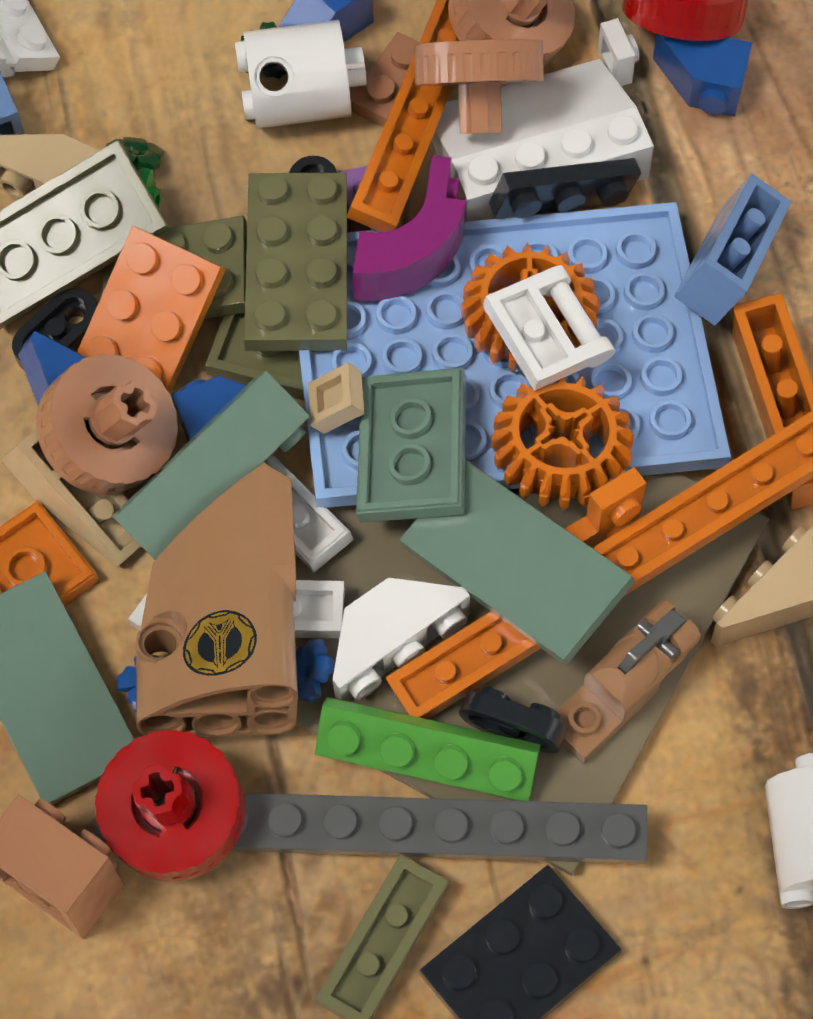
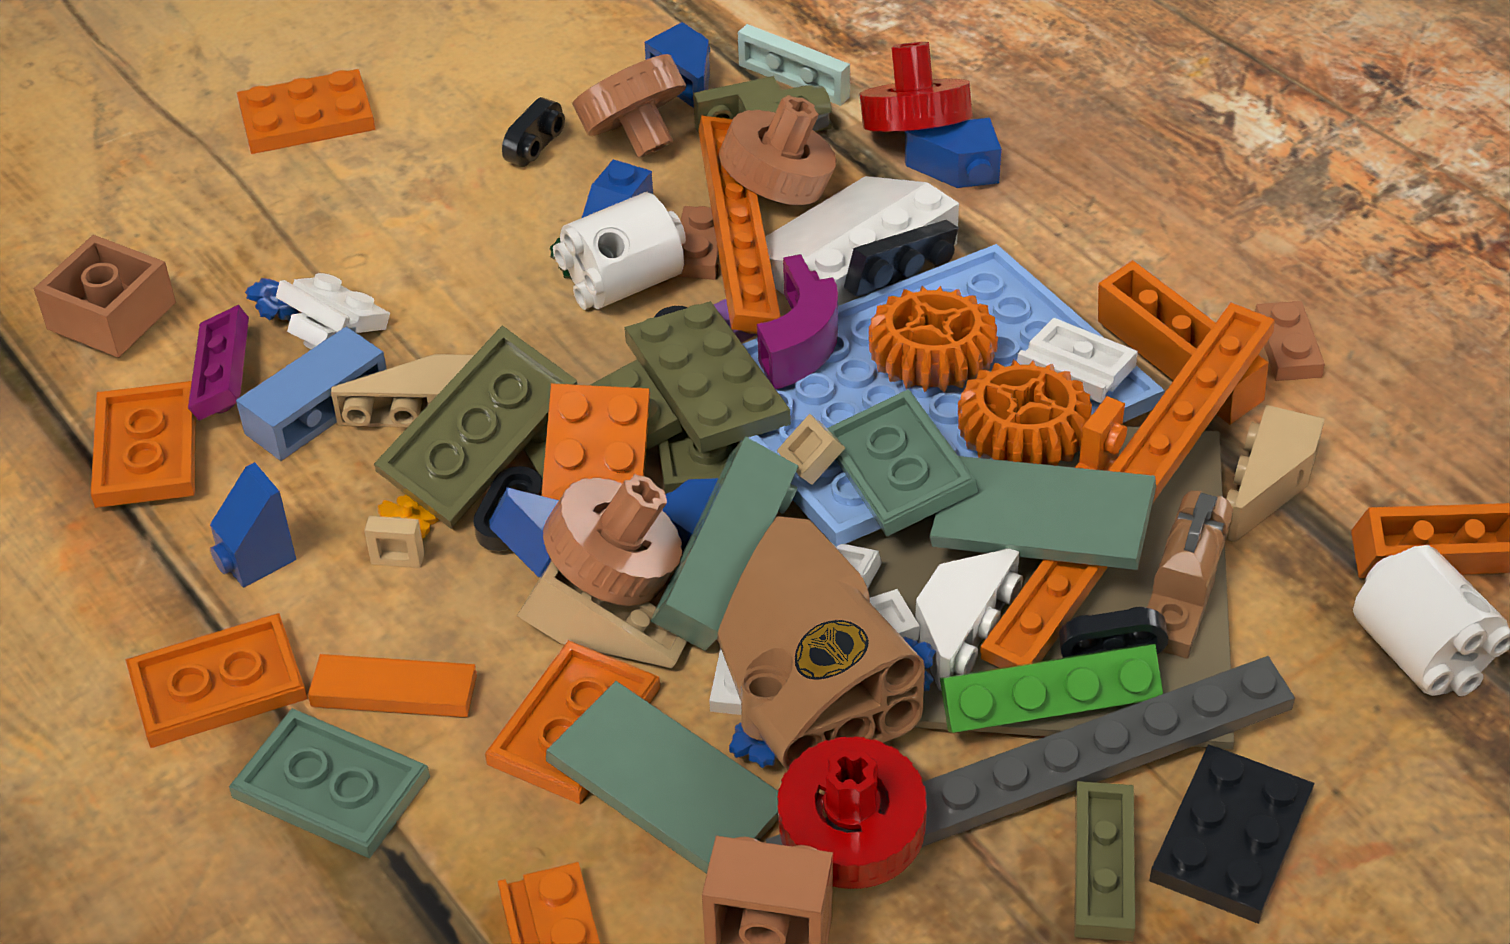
camera: 25 degrees left, 20 degrees down
(479, 71) = (790, 183): nougat piece -> none
(536, 334) = (966, 331): white plate -> none
(617, 51) = (878, 159): white plate -> none
(658, 391) = (1087, 356): none -> white plate
(733, 249) = (1070, 252): medium blue brick -> none

